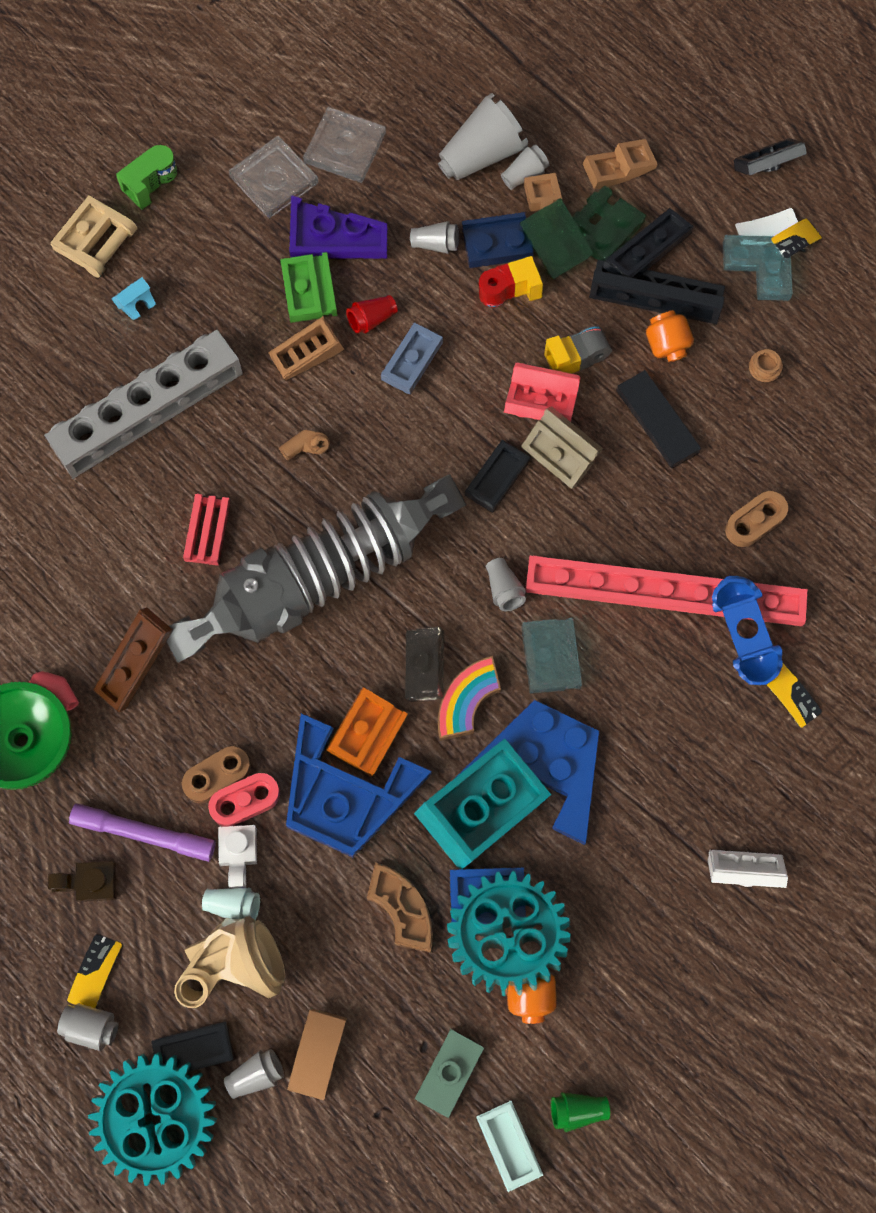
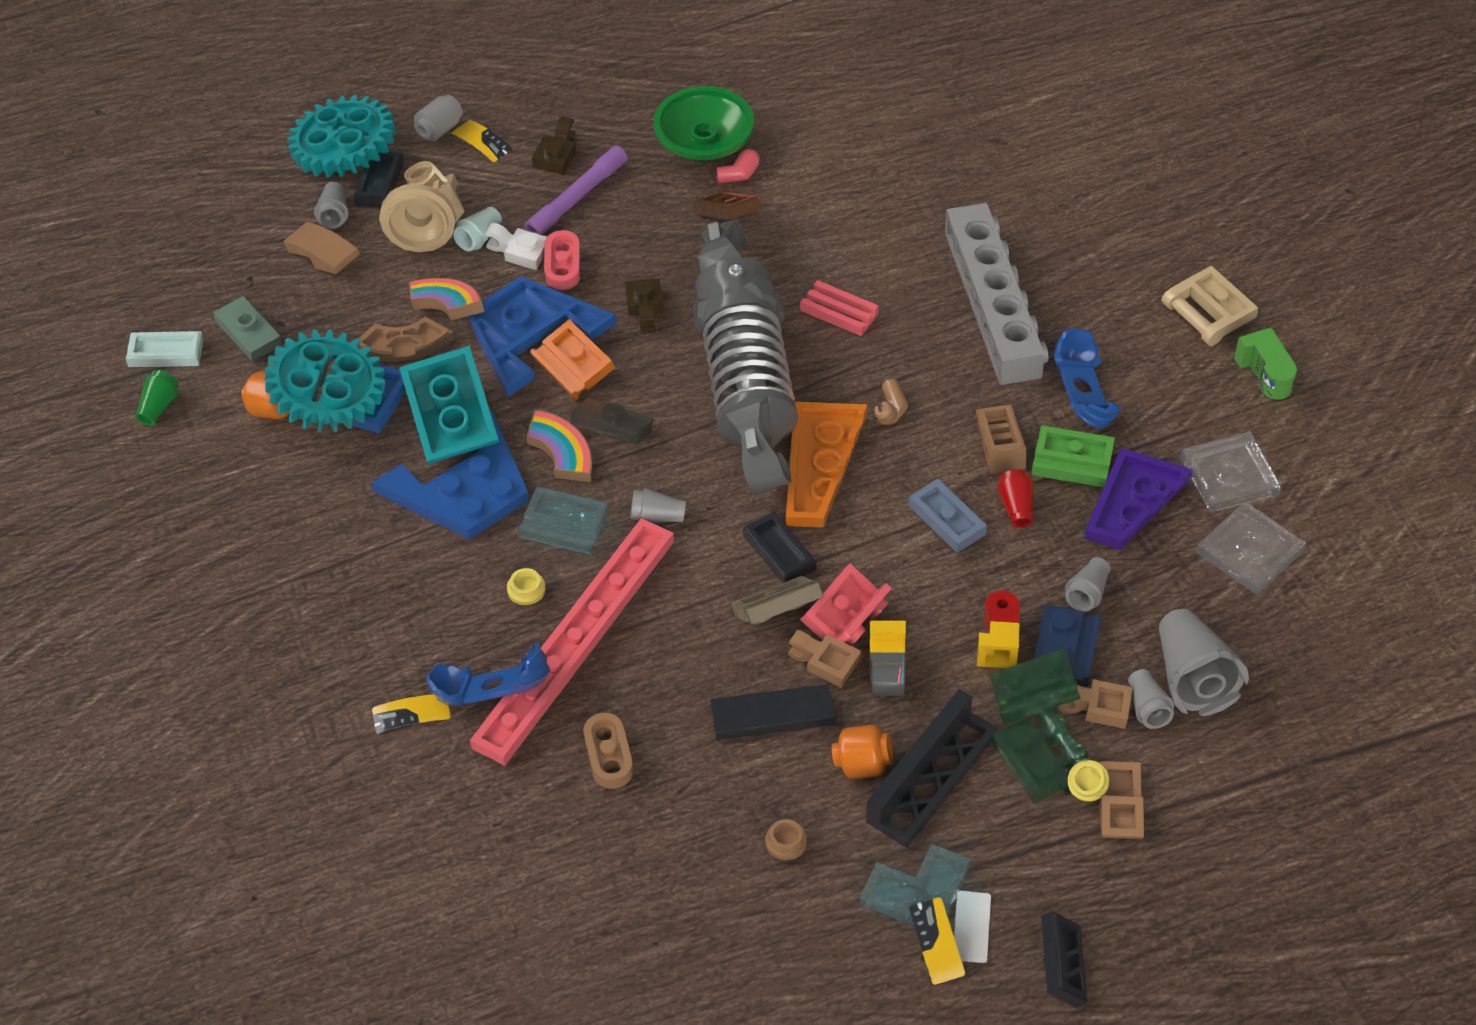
camera: 115 degrees right, 20 degrees down
(130, 295) = (1122, 312): medium azure tile -> none
(216, 774) = (598, 253): medium nougat plate -> none
(251, 288) = (1076, 360): none -> blue piece
(262, 705) = (645, 300): none -> dark brown plate
(338, 884) = (445, 294): none -> tile
(393, 473) = (819, 458): none -> orange wing
(594, 393) = (826, 659): none -> medium nougat plate
(622, 180) = (1088, 780): none -> light yellow plate
(632, 656) = (526, 587): none -> light yellow plate
(649, 245) = (992, 782): black tile -> none
(747, 868) = (266, 594): white plate -> none

